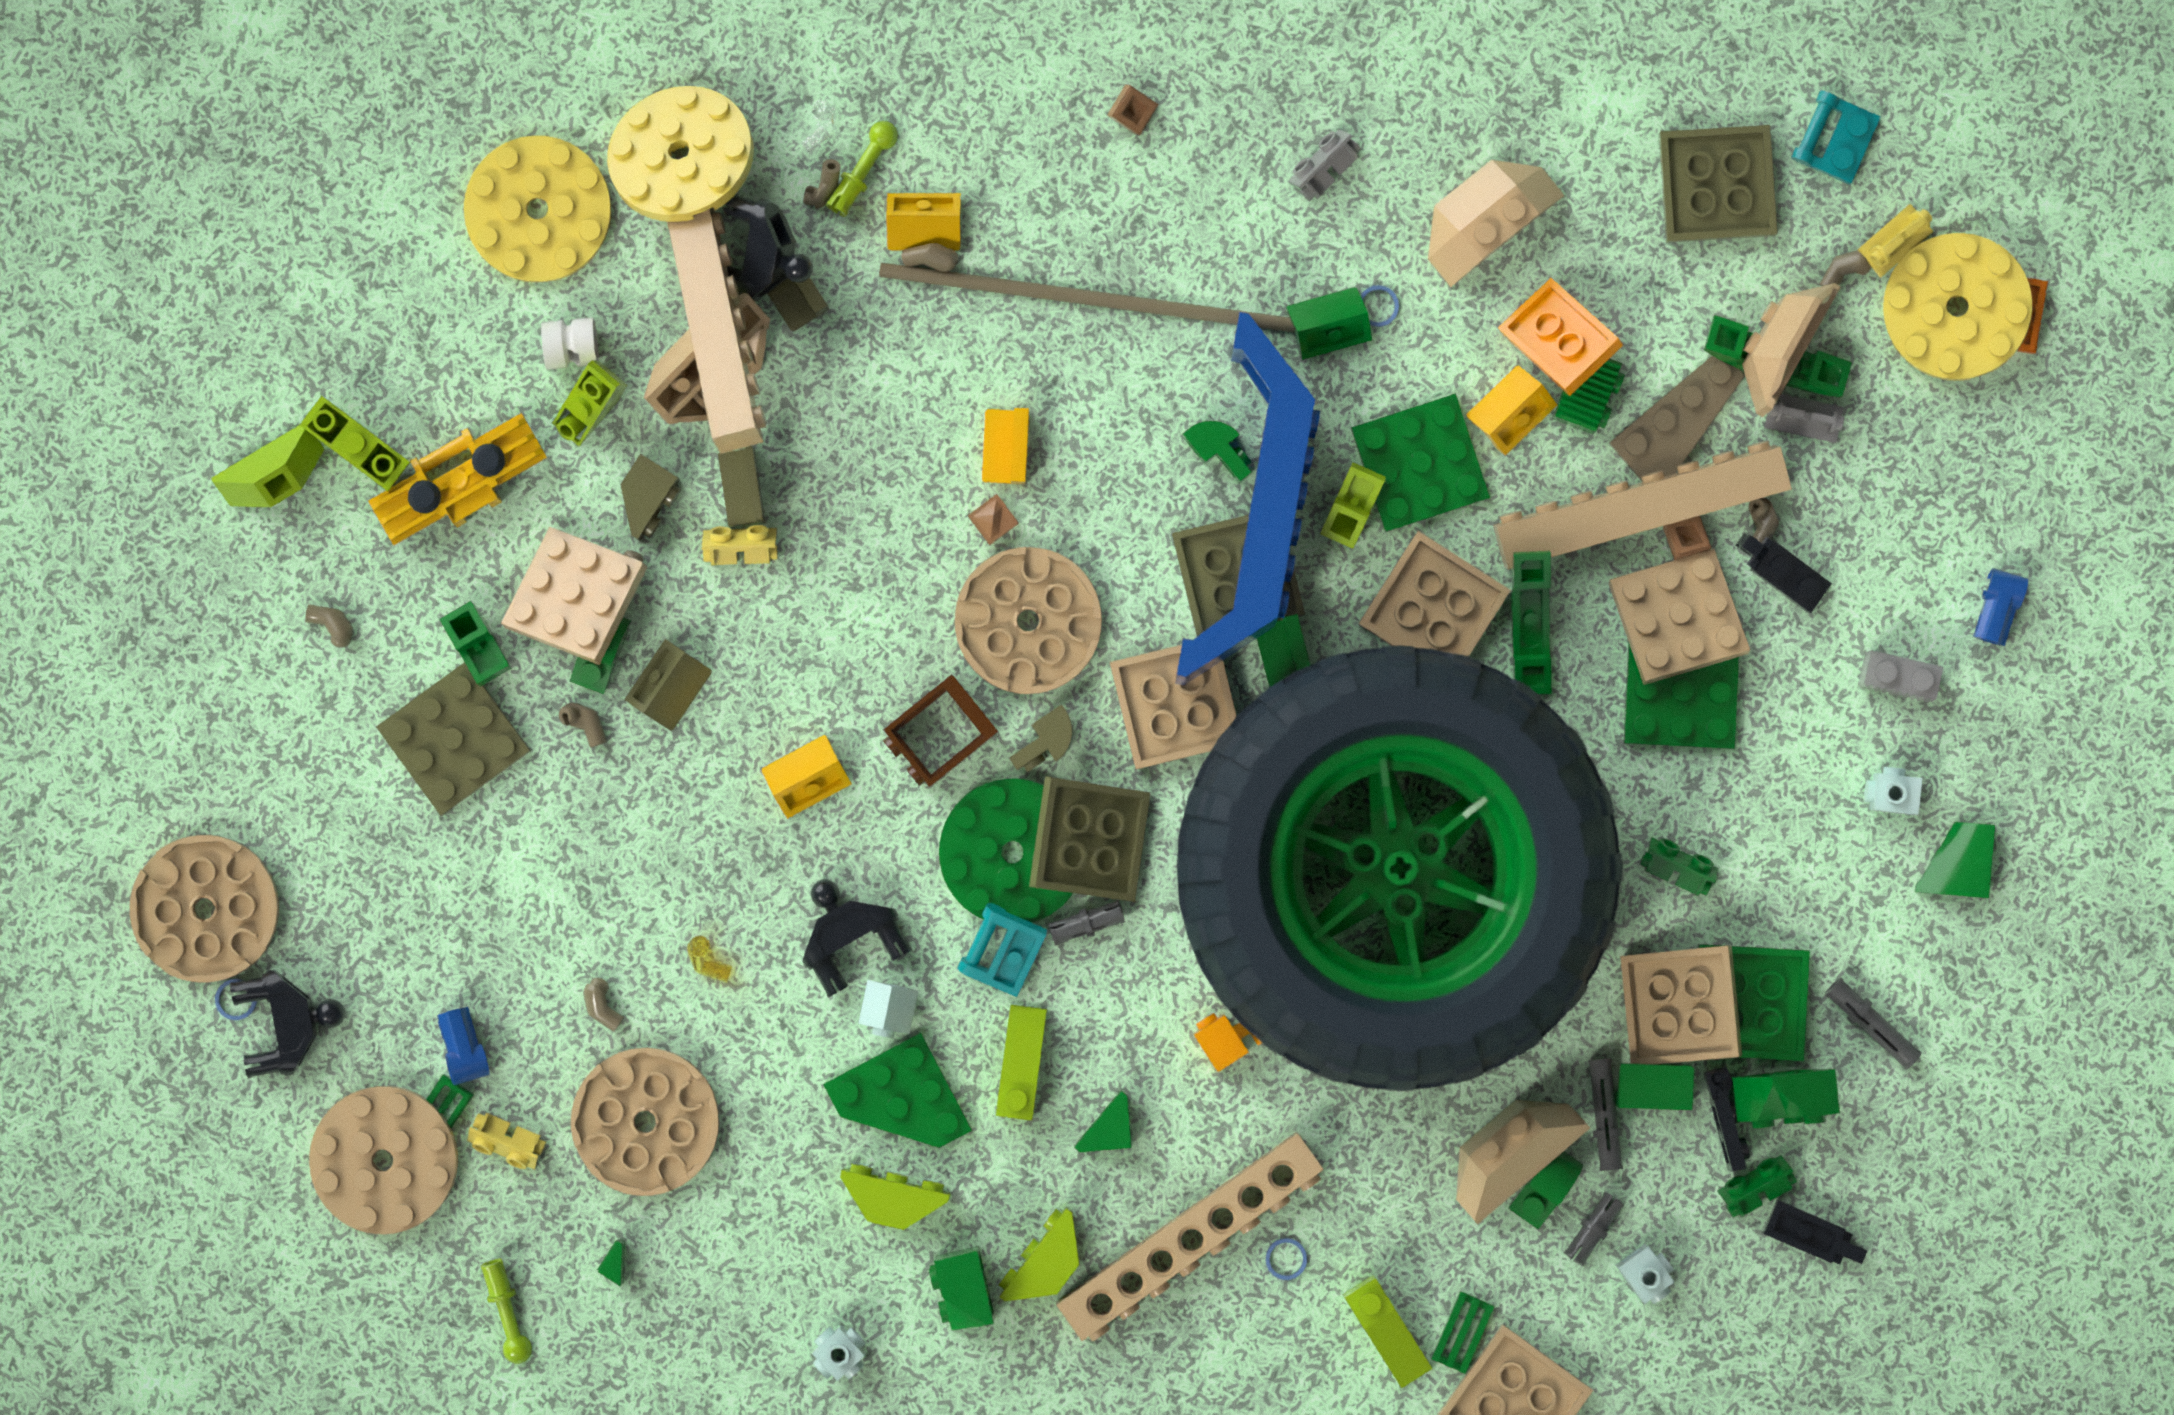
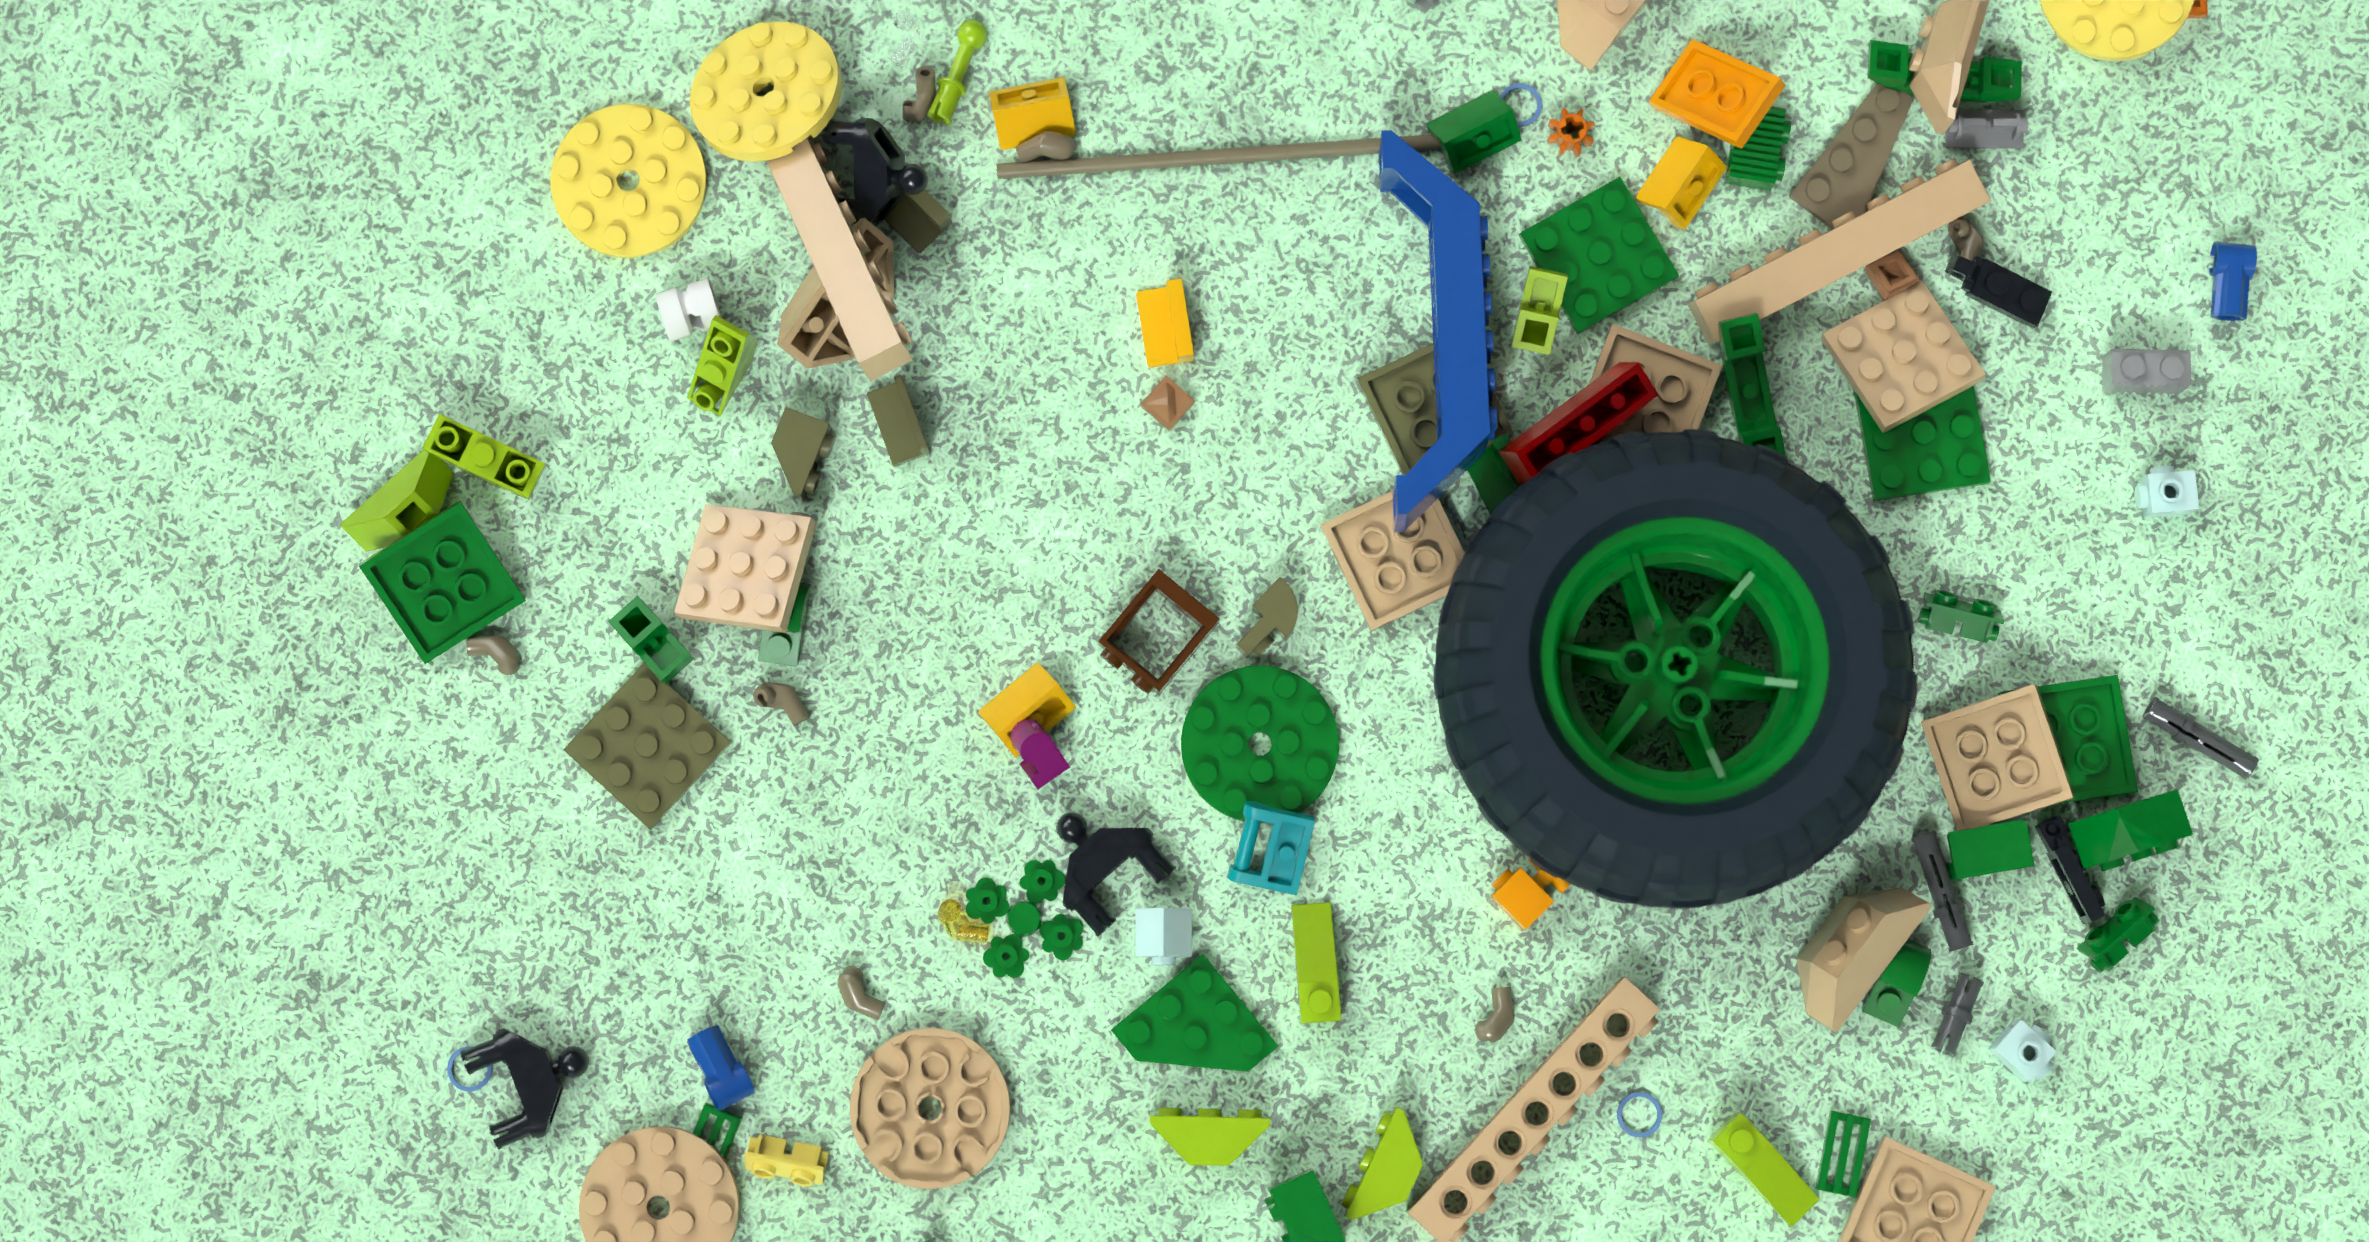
camera: 10 degrees left, 5 degrees down
(166, 916) = (376, 972): tan plate -> none
(294, 551) = (442, 582): none -> green plate
(463, 490) = (605, 484): yellow piece -> none
(668, 685) = (863, 643): olive panel -> none
(722, 544) = (925, 476): light yellow hinge -> none
(765, 966) = (1024, 918): none -> green plant
(807, 819) = (1040, 754): none -> magenta leg
(1035, 582) = (1216, 539): tan plate -> none
(1086, 922) = (1353, 801): dark grey pin -> none
(1089, 839) = (1339, 712): olive plate -> none
(1110, 1129) = (1424, 1014): green slope -> none
(1177, 1148) = (1500, 1019): none -> dark tan arm
(1214, 439) = (1380, 274): green brick -> none
(1365, 619) = (1580, 420): none -> red brick
(1425, 334) = (1565, 141): none -> orange gear
(1811, 1234) = (2187, 973): black hinge -> none
(1961, 863) = (2254, 551): green slope -> none

